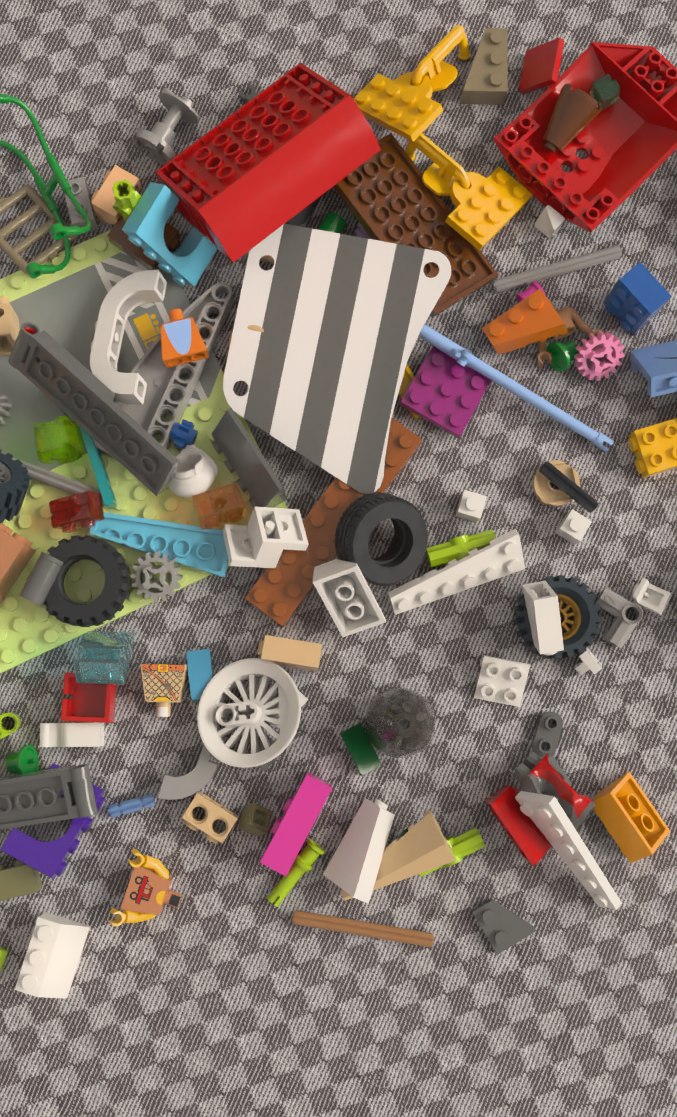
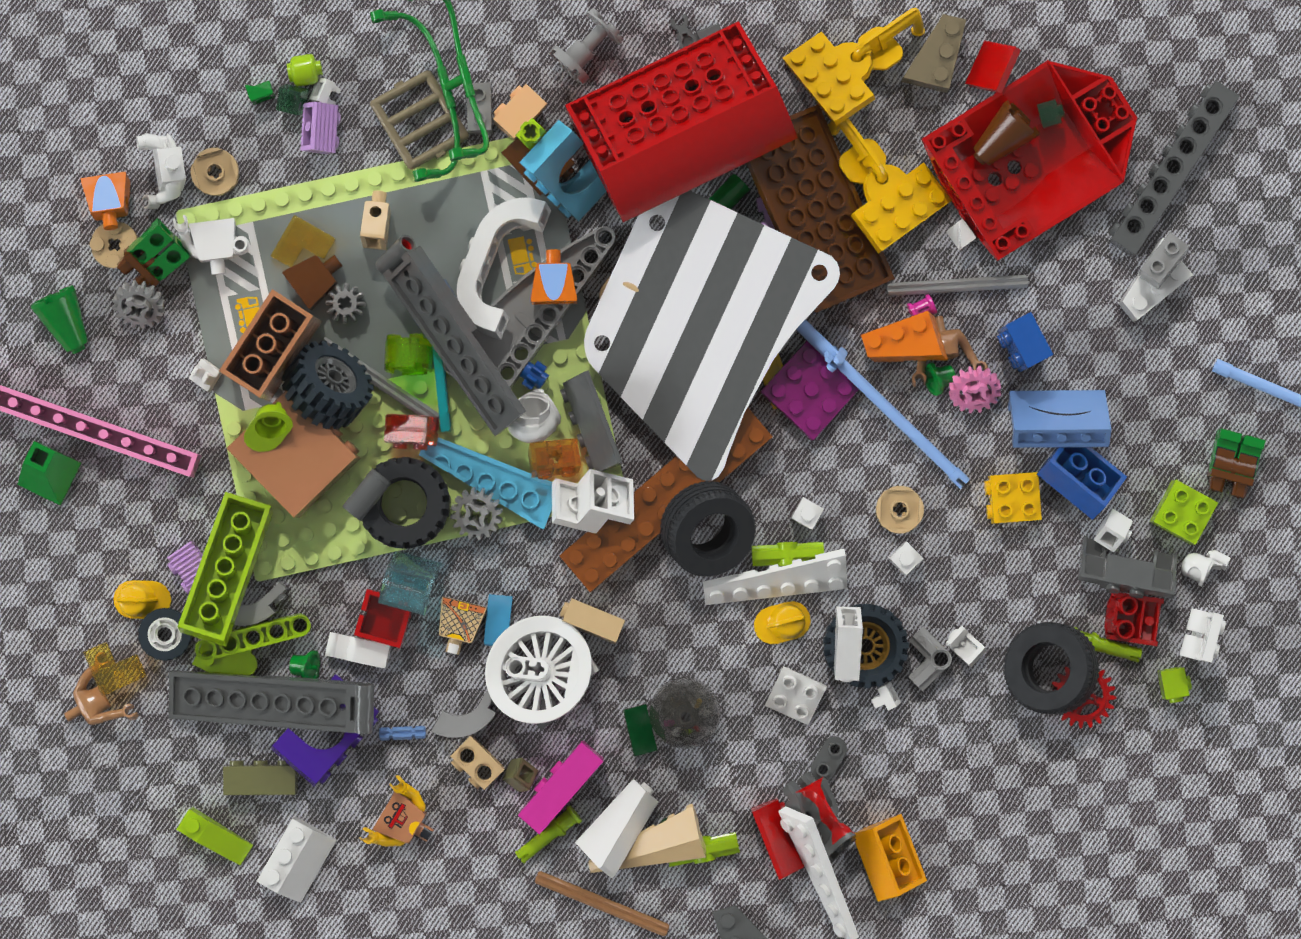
camera: 15 degrees right, 5 degrees up
(347, 596) = (660, 578): white slope -> none
(471, 615) = (782, 622): none -> yellow piece
(568, 487) = (909, 517): black axle -> none

